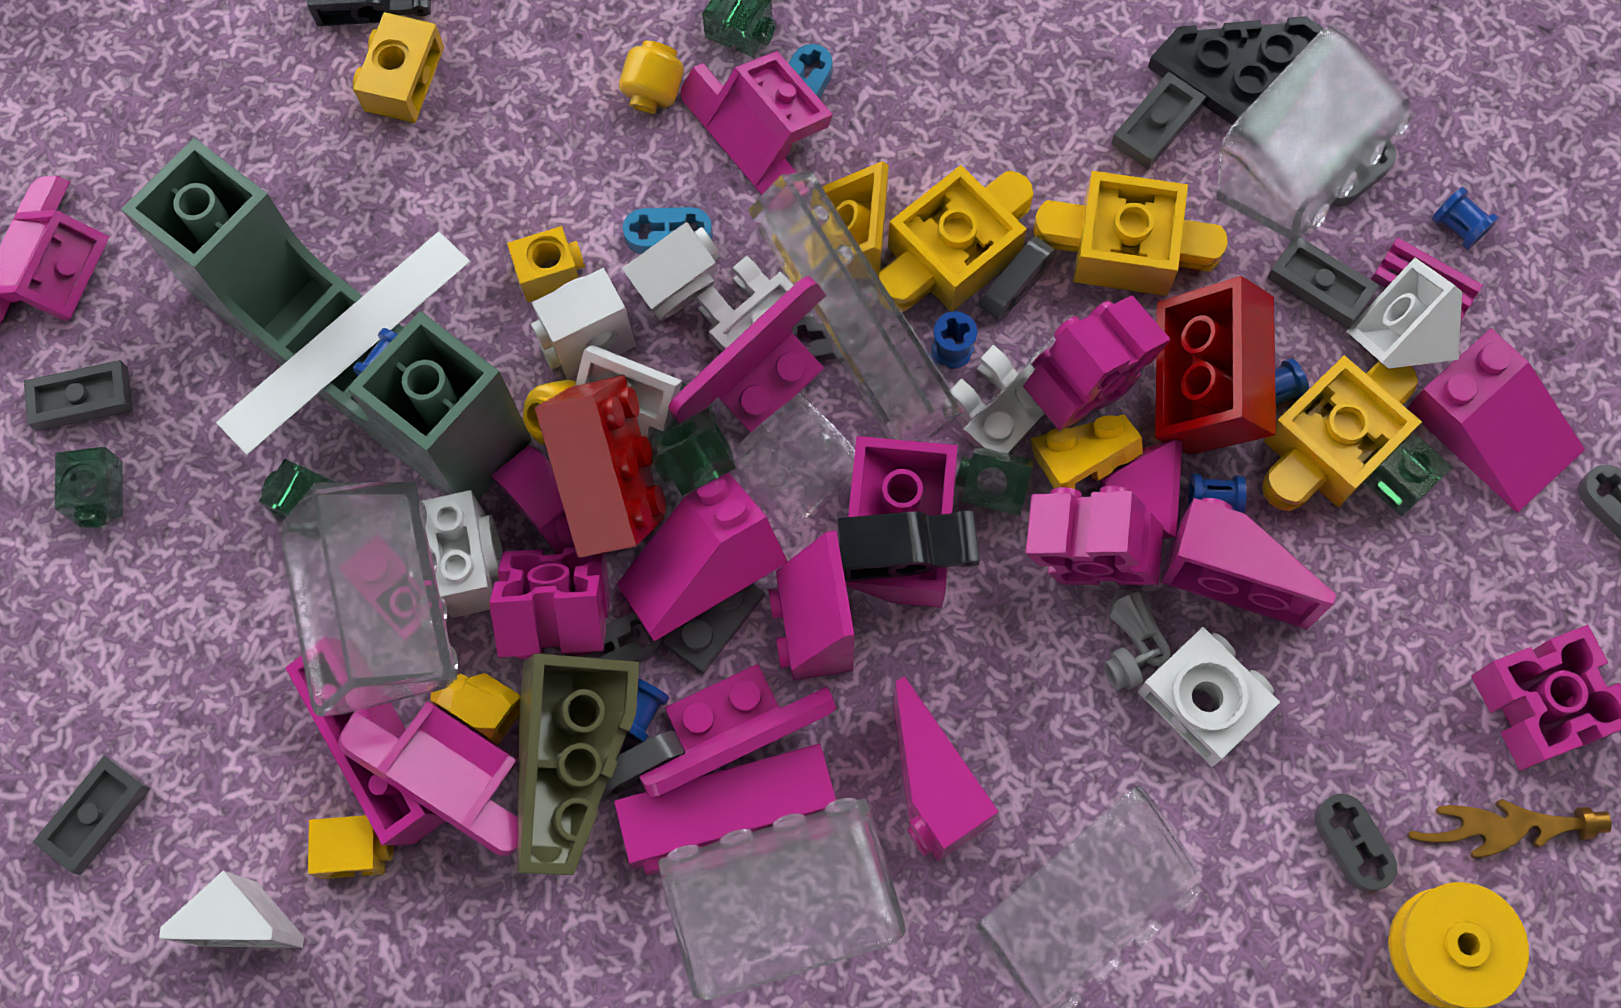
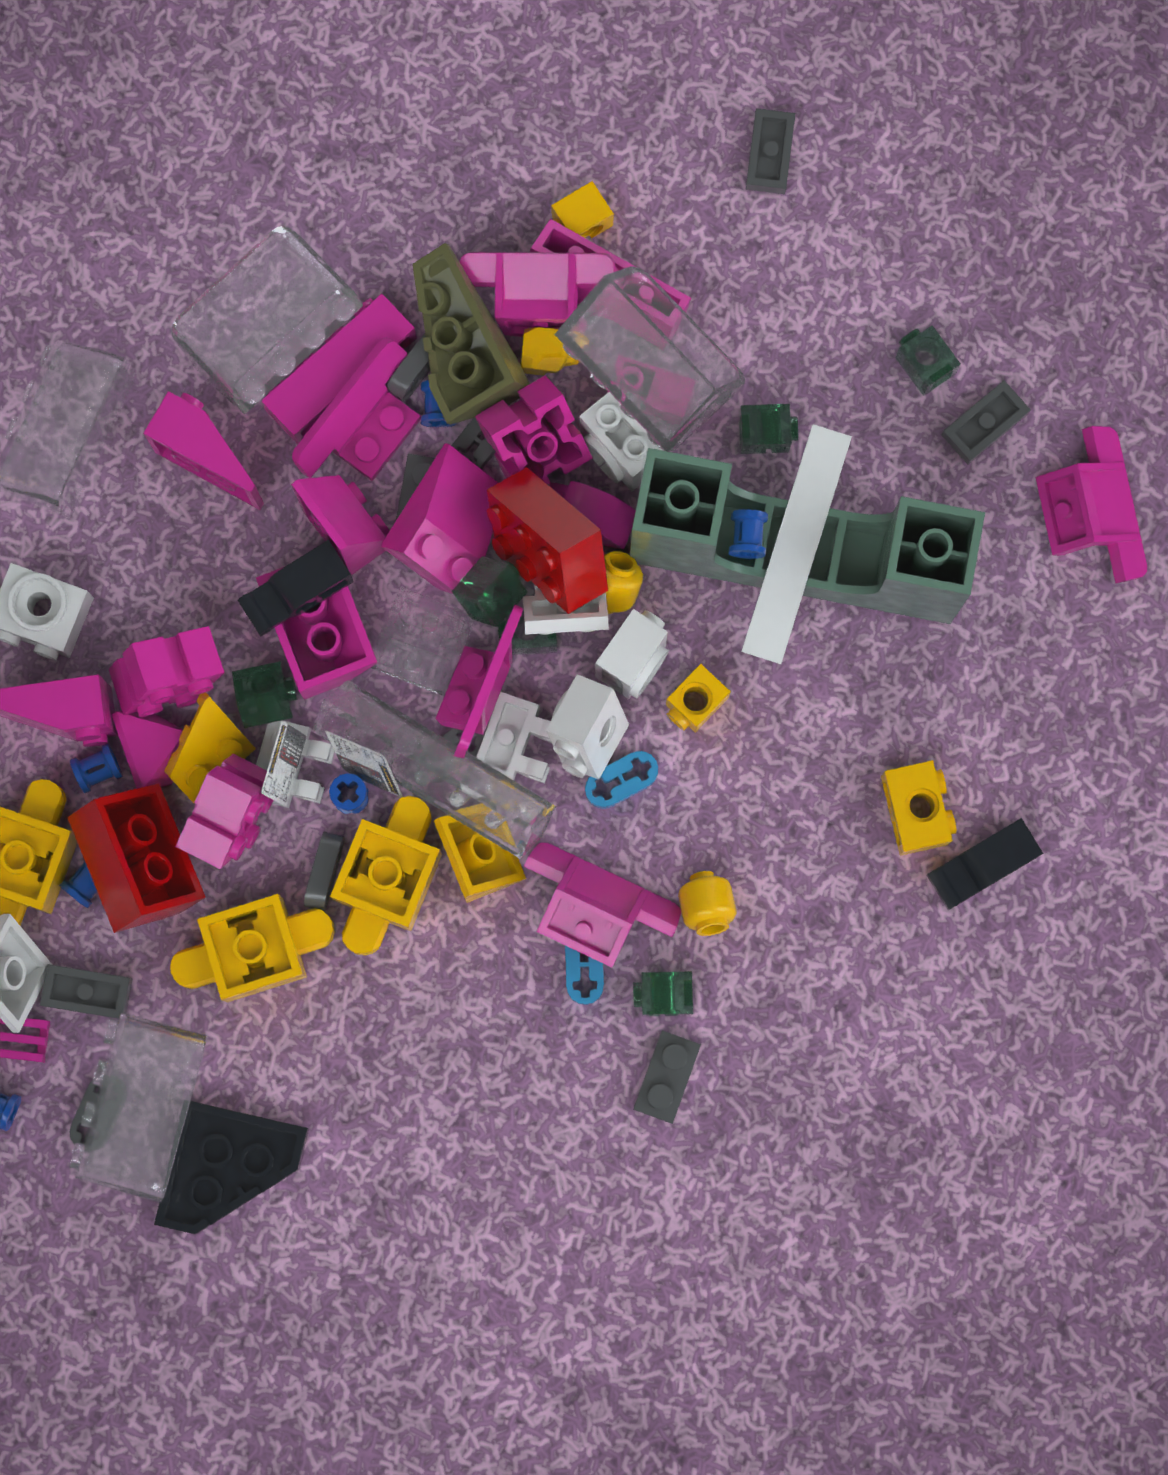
camera: 150 degrees right, 10 degrees up
(232, 914) = (618, 128): white slope -> none
(1134, 615) = (111, 642): light grey piece -> none
(1158, 120) = (276, 1075): dark grey plate -> none

